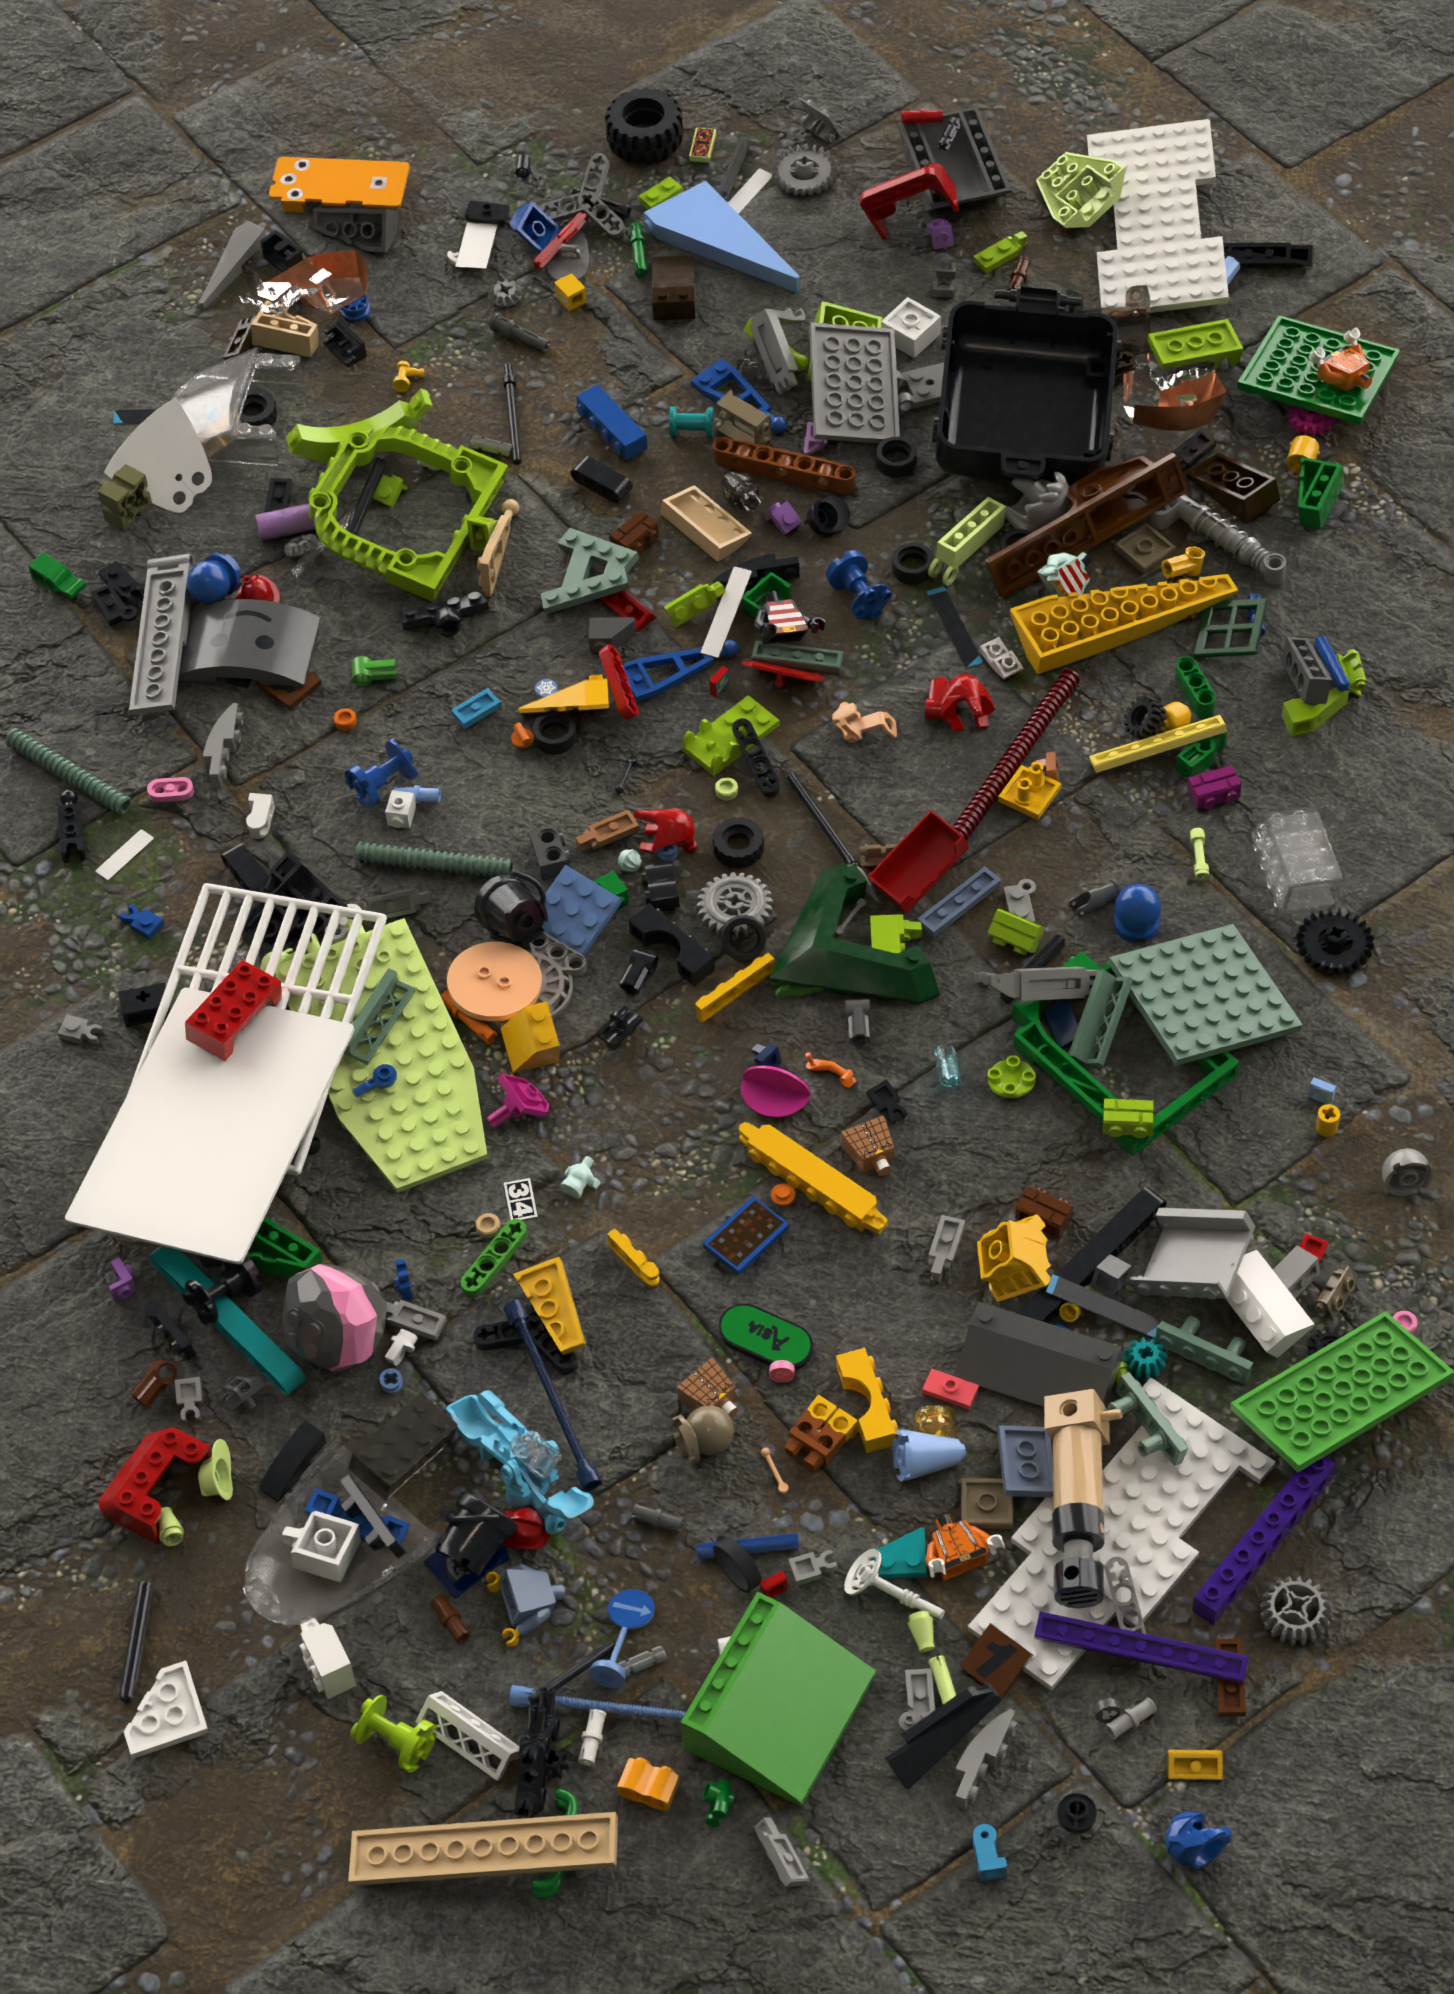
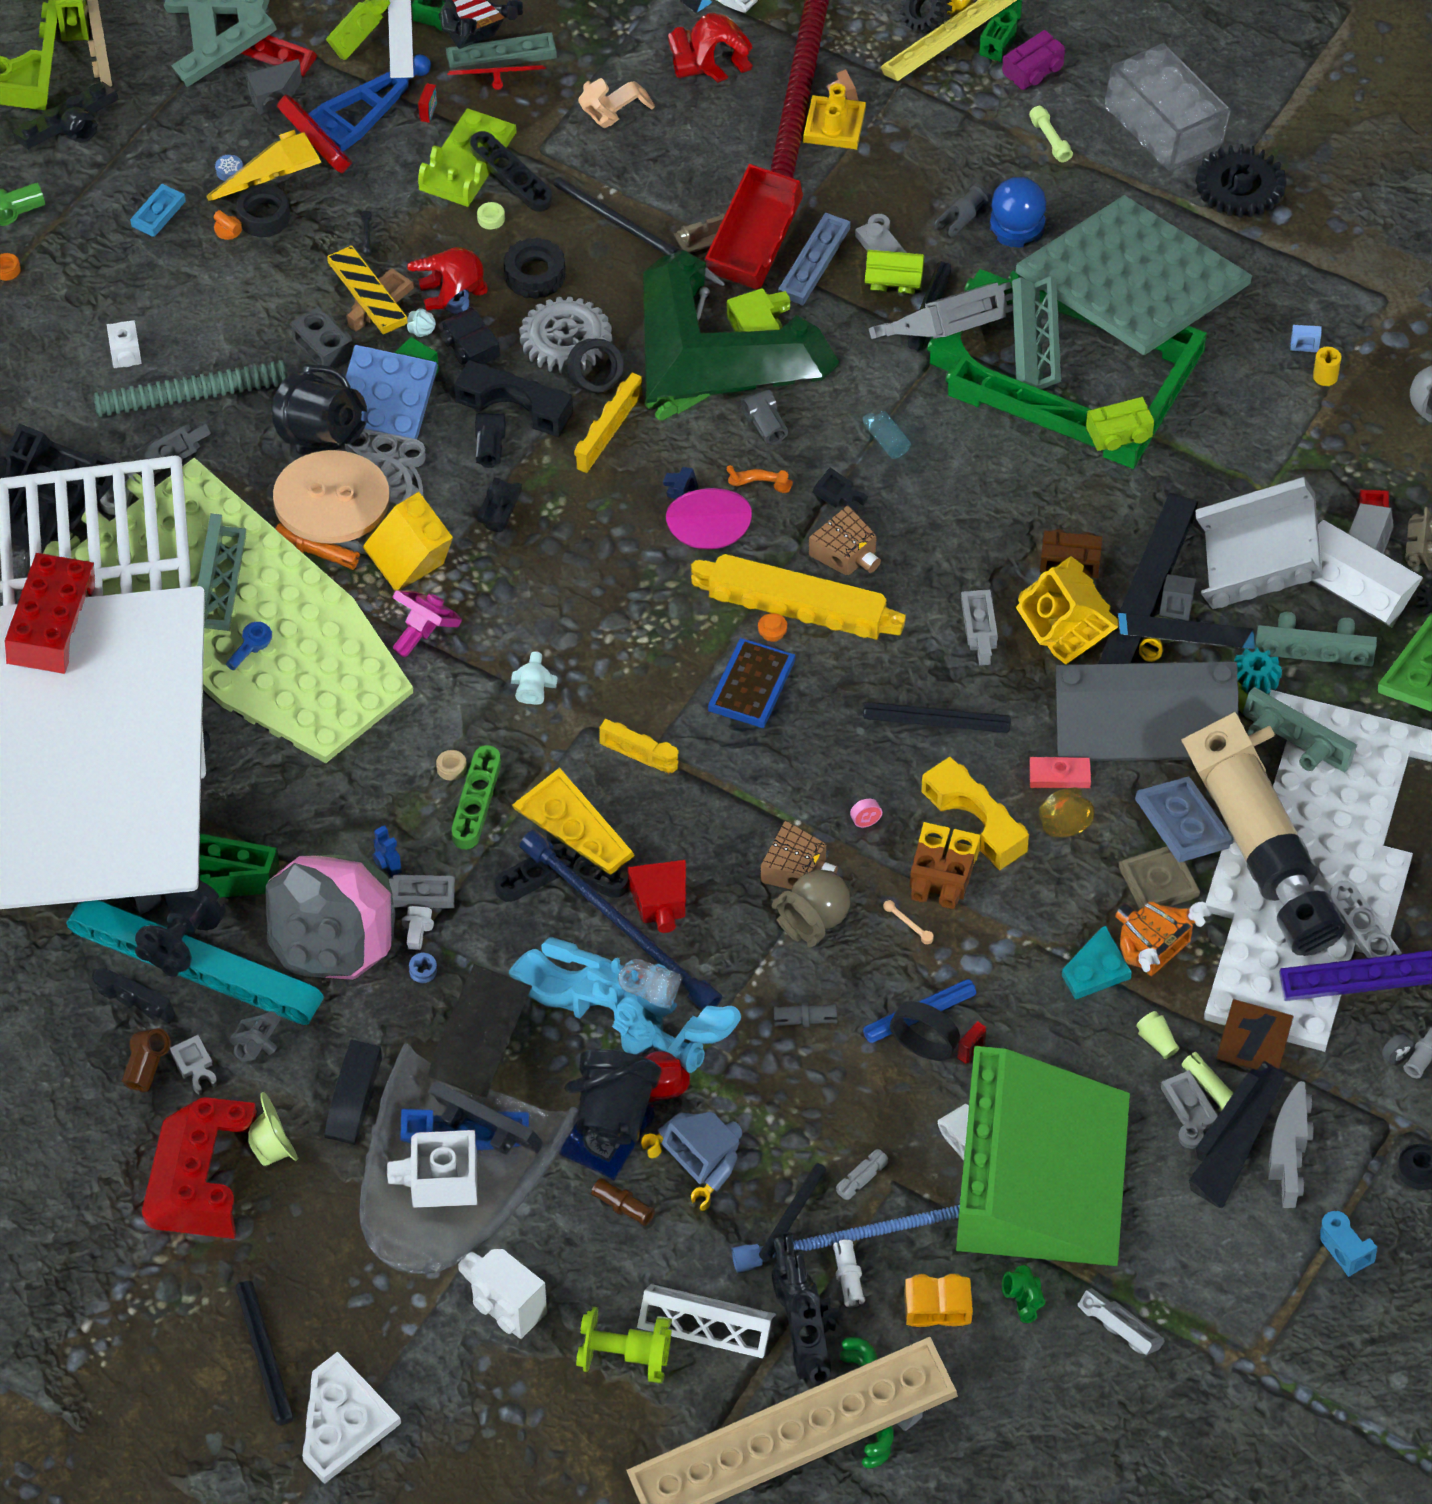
camera: 25 degrees left, 0 degrees up
(125, 1284) = (51, 957): medium lavender bracket -> none
(170, 1529) = (246, 1216): yellowish green cone -> none
(372, 779) = (73, 324): blue piece -> none
(422, 794) = (142, 320): light blue pin -> none
(520, 1199) = (473, 725): white sticker -> none
(594, 1382) = (659, 892): none -> red torso
(599, 822) = (367, 289): none -> yellow tile
(629, 1611) = (823, 1124): piece -> none
(765, 1335) = (826, 782): green tile -> none
(808, 1568) = (1001, 1011): light grey plate -> none
(868, 1576) = (1077, 997): white dish -> none
(875, 1311) = (936, 717): none -> black axle
(924, 1453) = (1067, 848): light blue cone -> none
(1011, 1078) = (964, 426): lime dish -> none
(1061, 1023) = (991, 350): dark blue slope -> none

